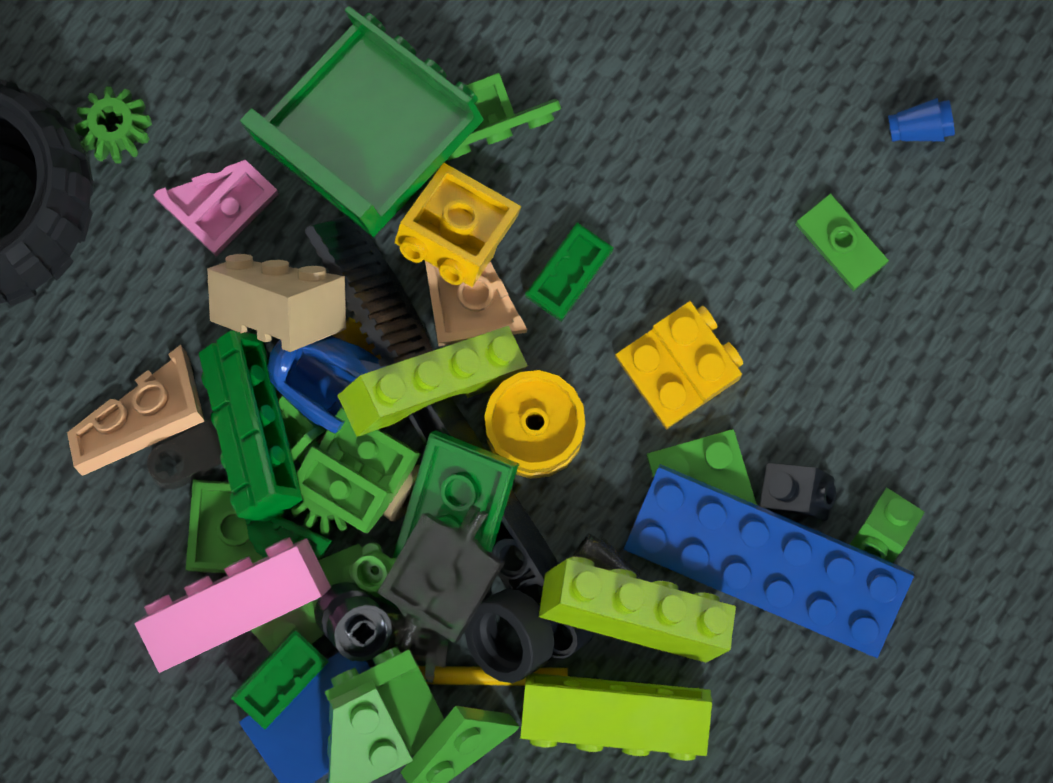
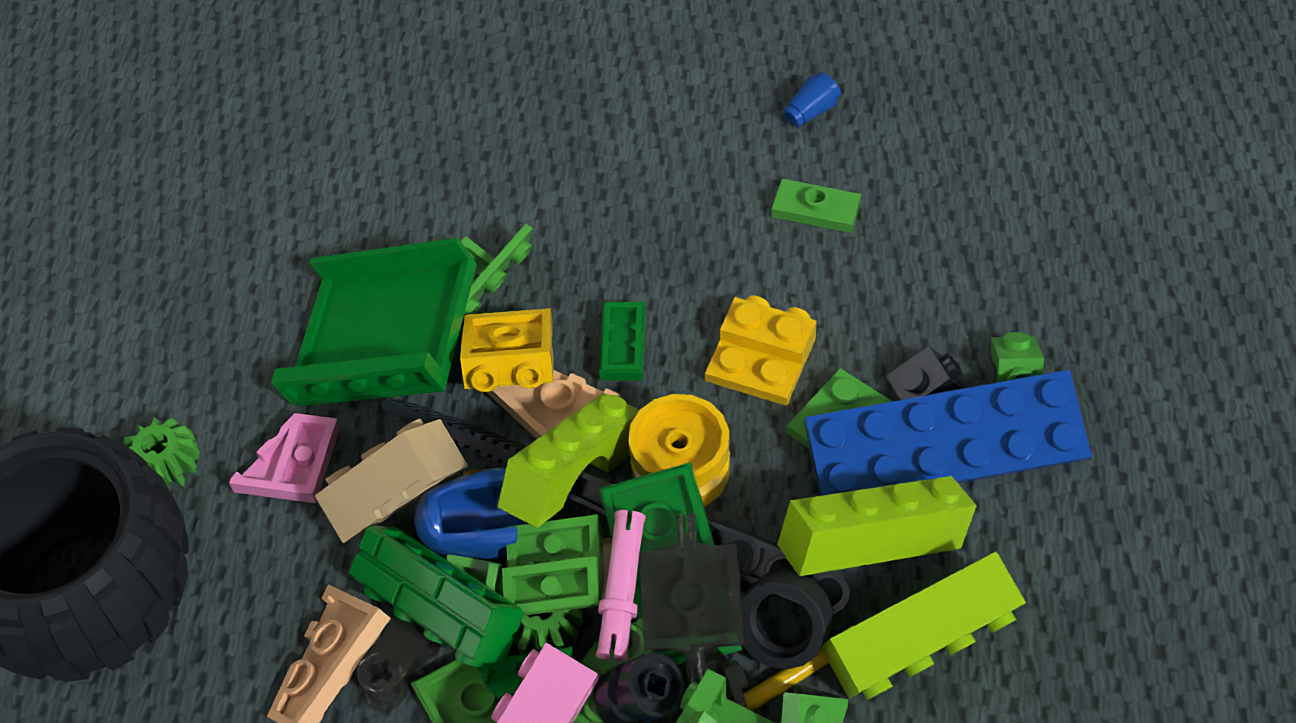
camera: 30 degrees left, 25 degrees down
(391, 530) = (620, 586): none -> bright pink pin

